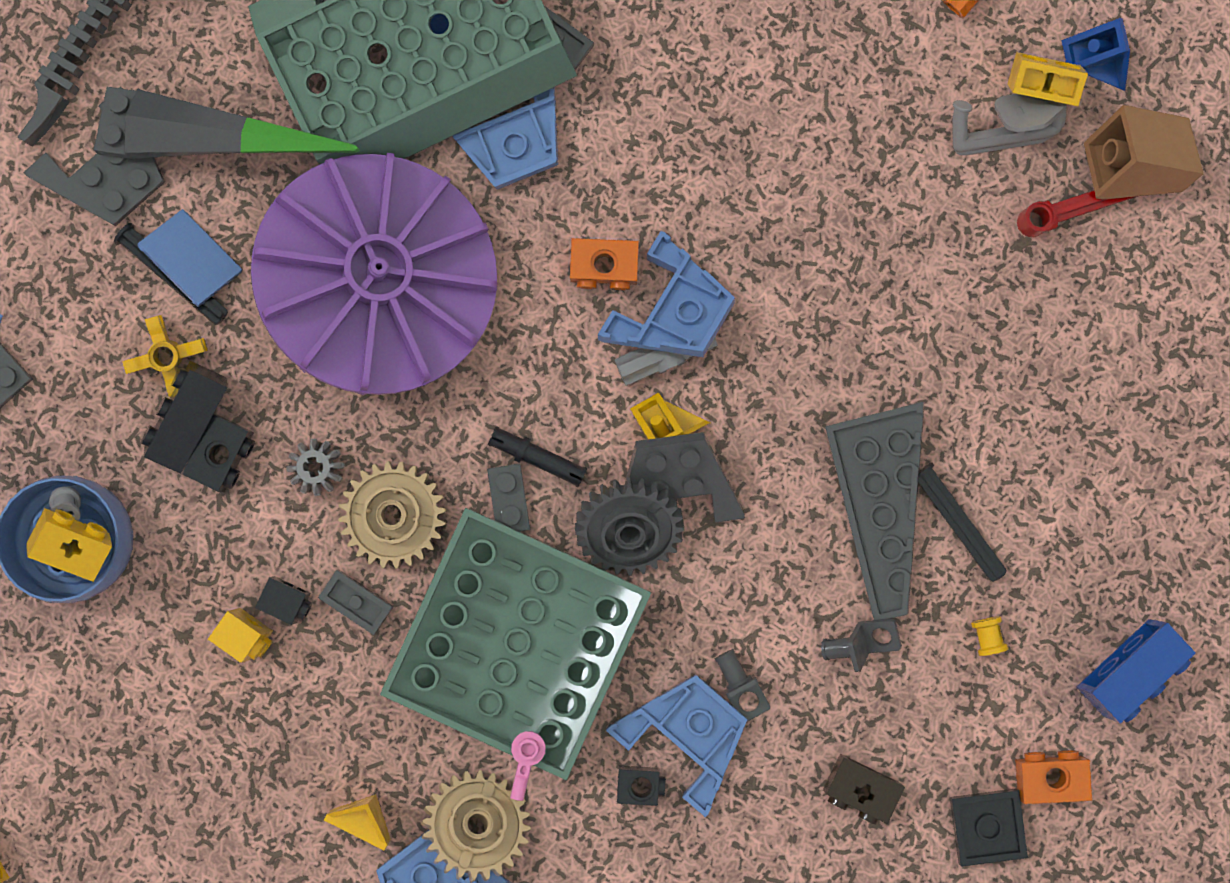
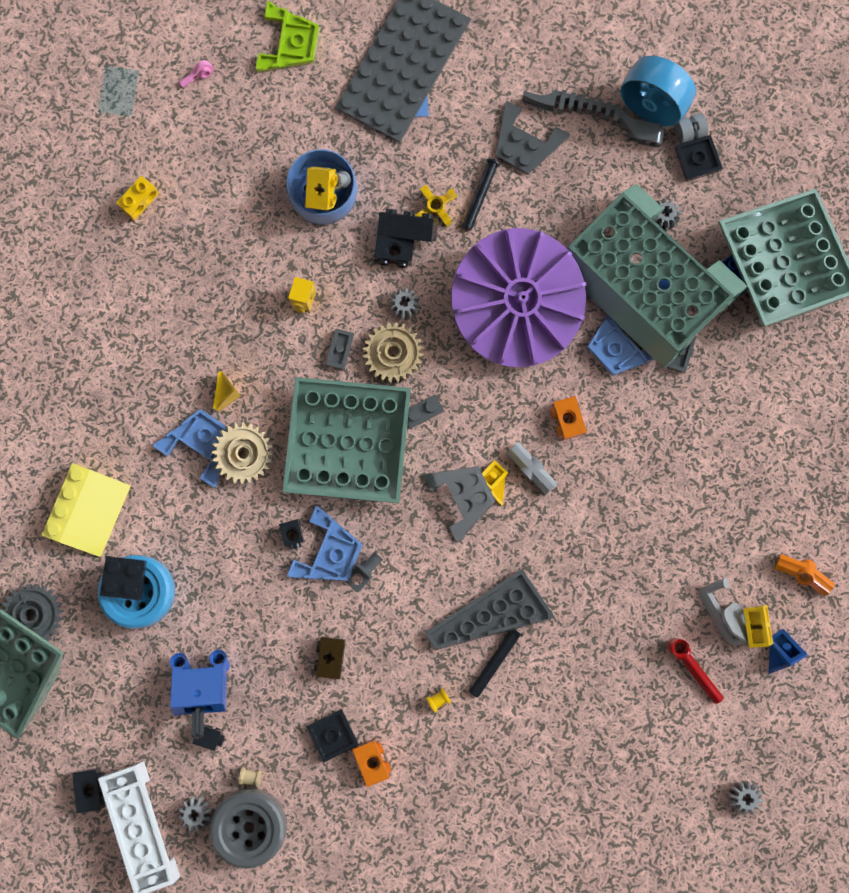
camera: 70 degrees right, 5 degrees down
(160, 126) = (556, 160): dark grey plate -> none
(189, 258) = (492, 200): medium blue piece -> none
(284, 601) = (327, 311): black brick -> none
(527, 750) = (291, 465): bright pink plate -> none
(536, 456) = (451, 418): black pin -> none
(653, 523) = (432, 465): dark grey gear -> none
(685, 314) = (555, 470): medium blue wing -> none
(862, 643) = (410, 629): dark grey bracket -> none
(1136, 671) = (447, 788): blue brick -> none
(1142, 154) = (736, 694): medium nougat slope -> none

